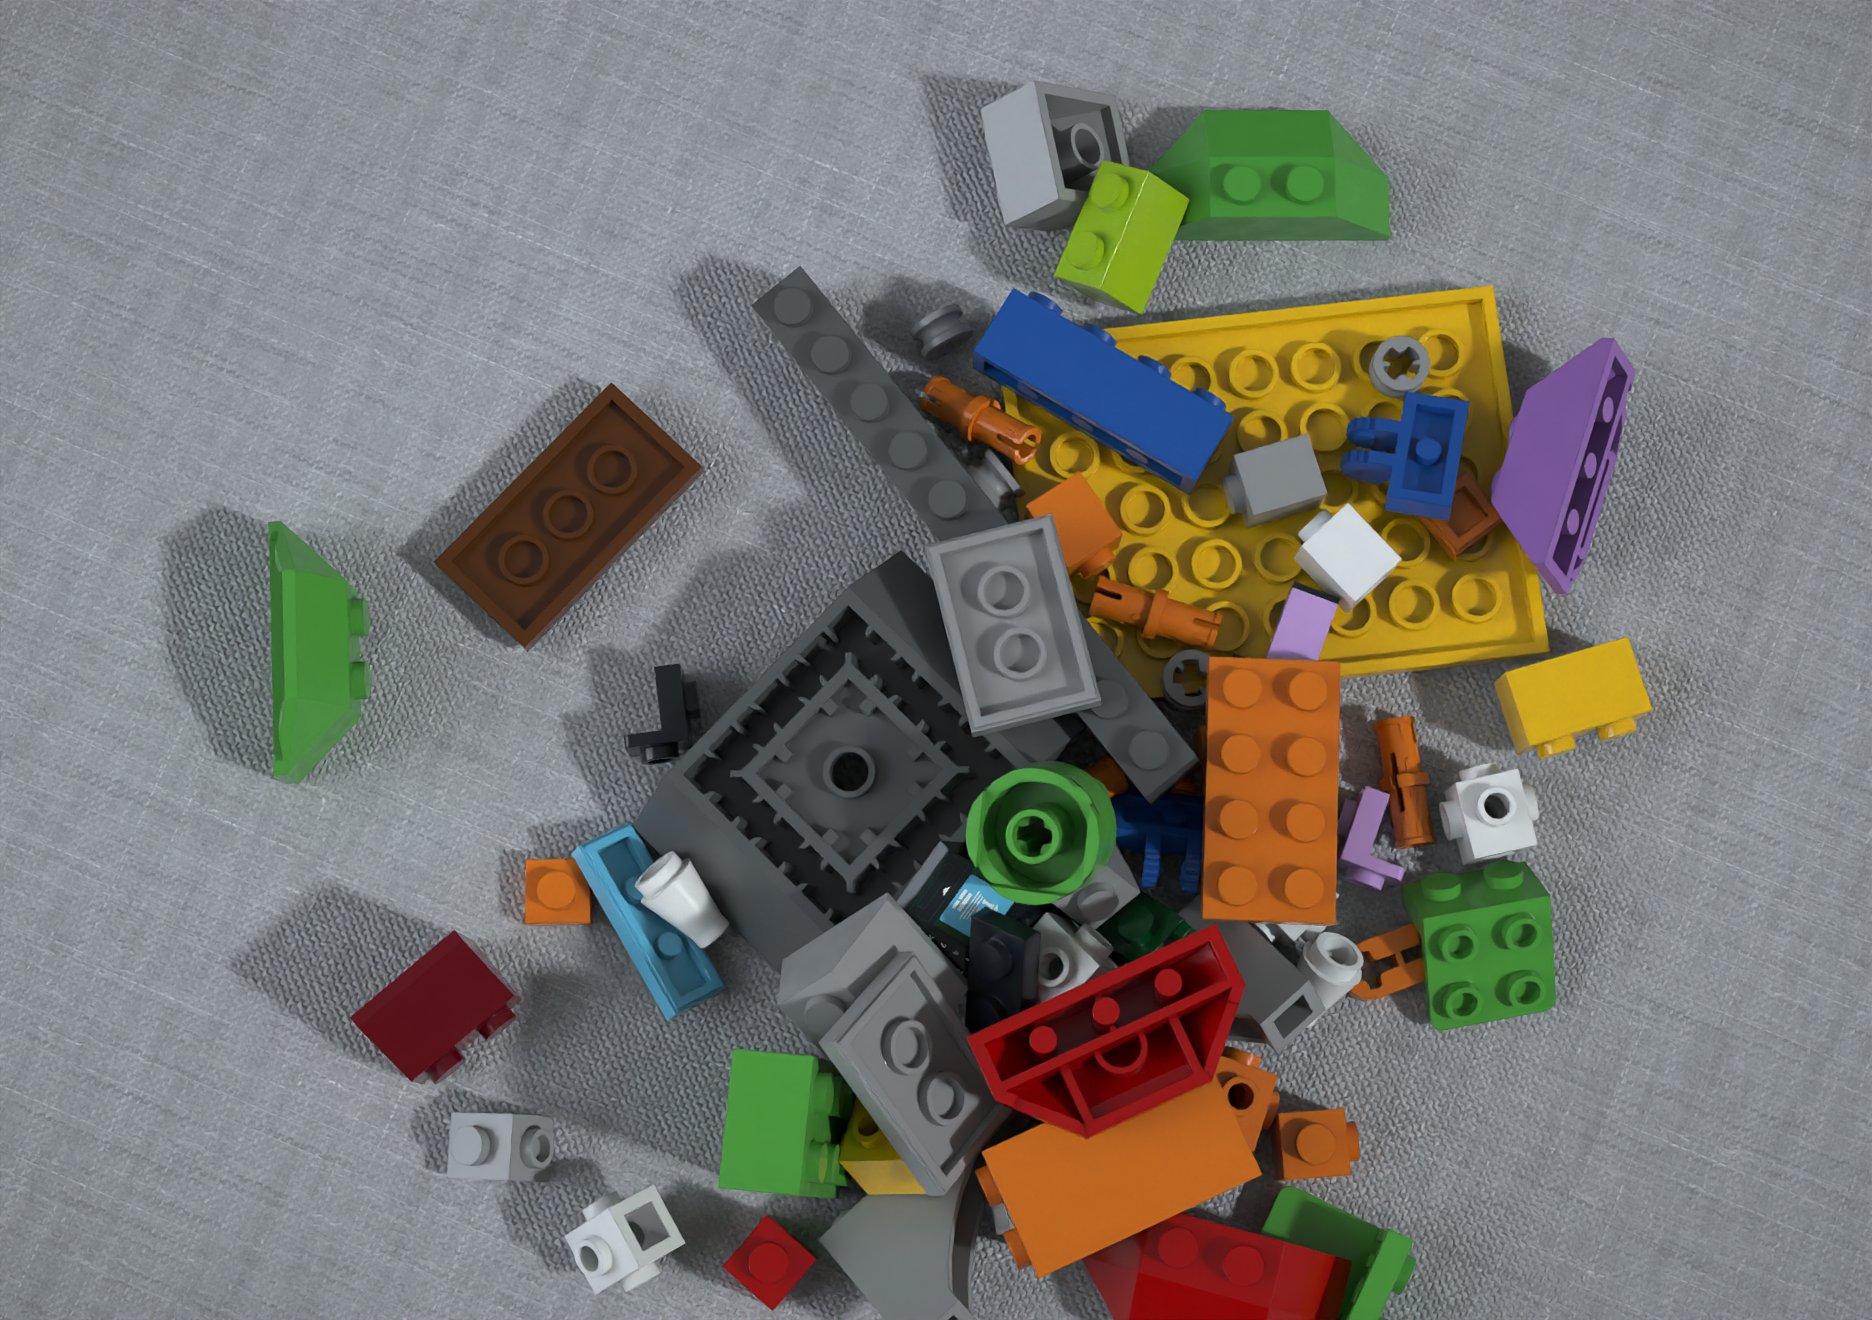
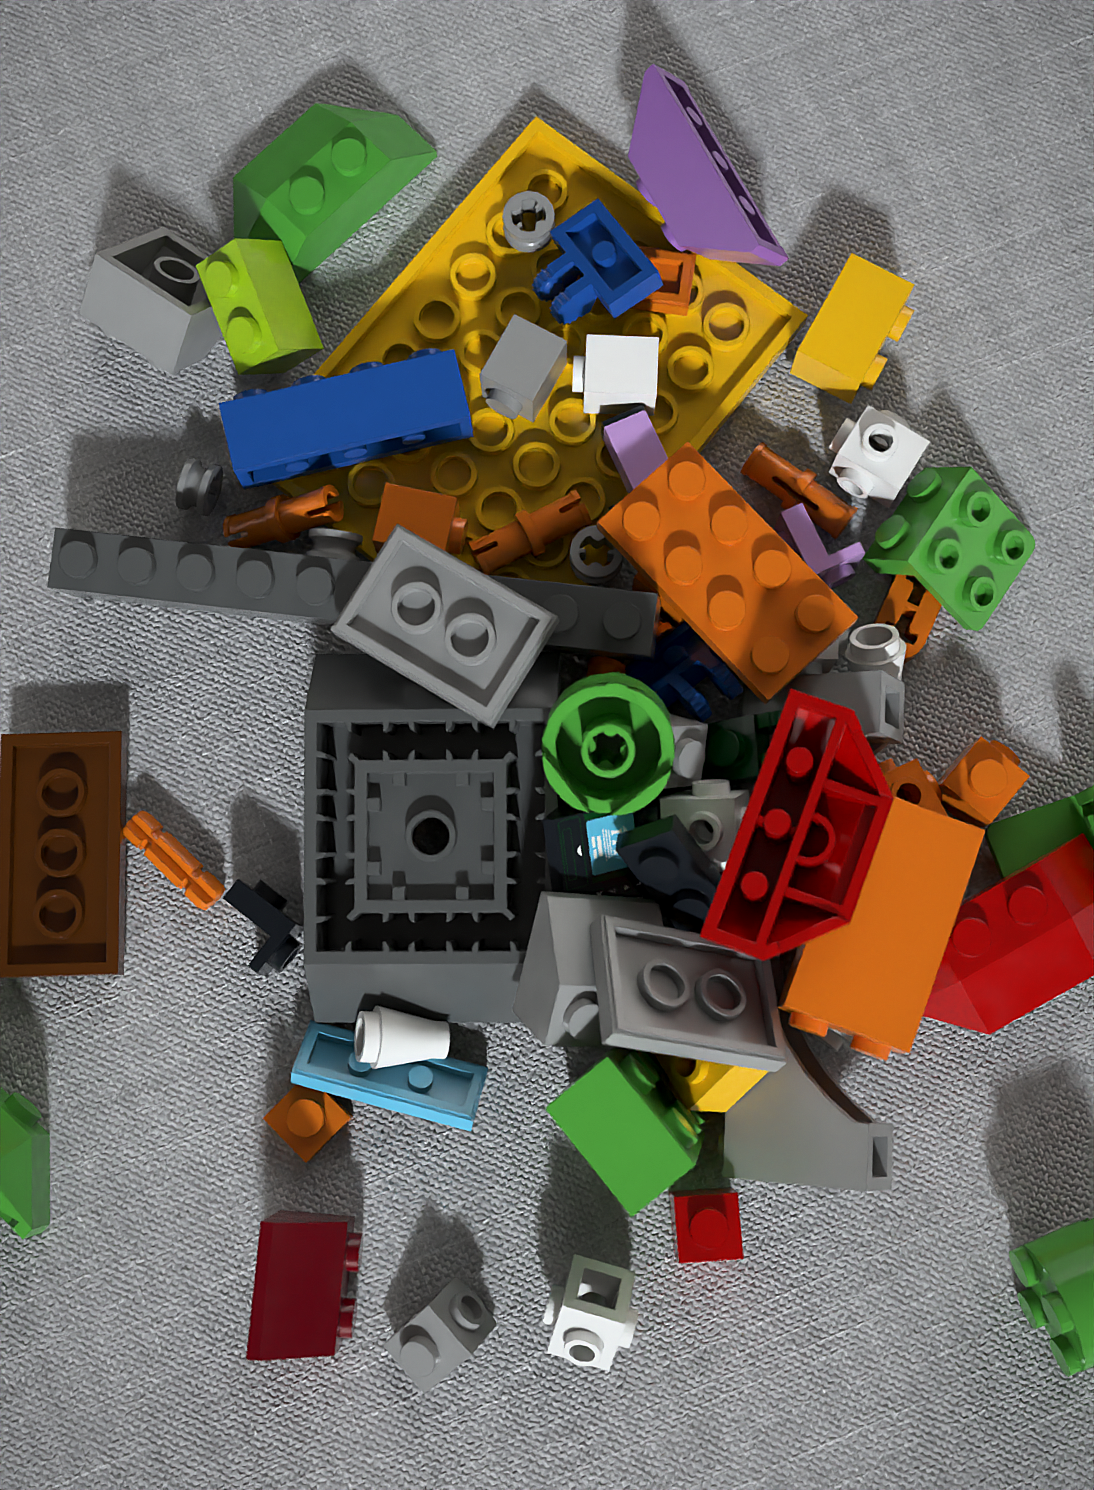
camera: 40 degrees left, 0 degrees up
(646, 601) = (173, 860): none -> orange axle

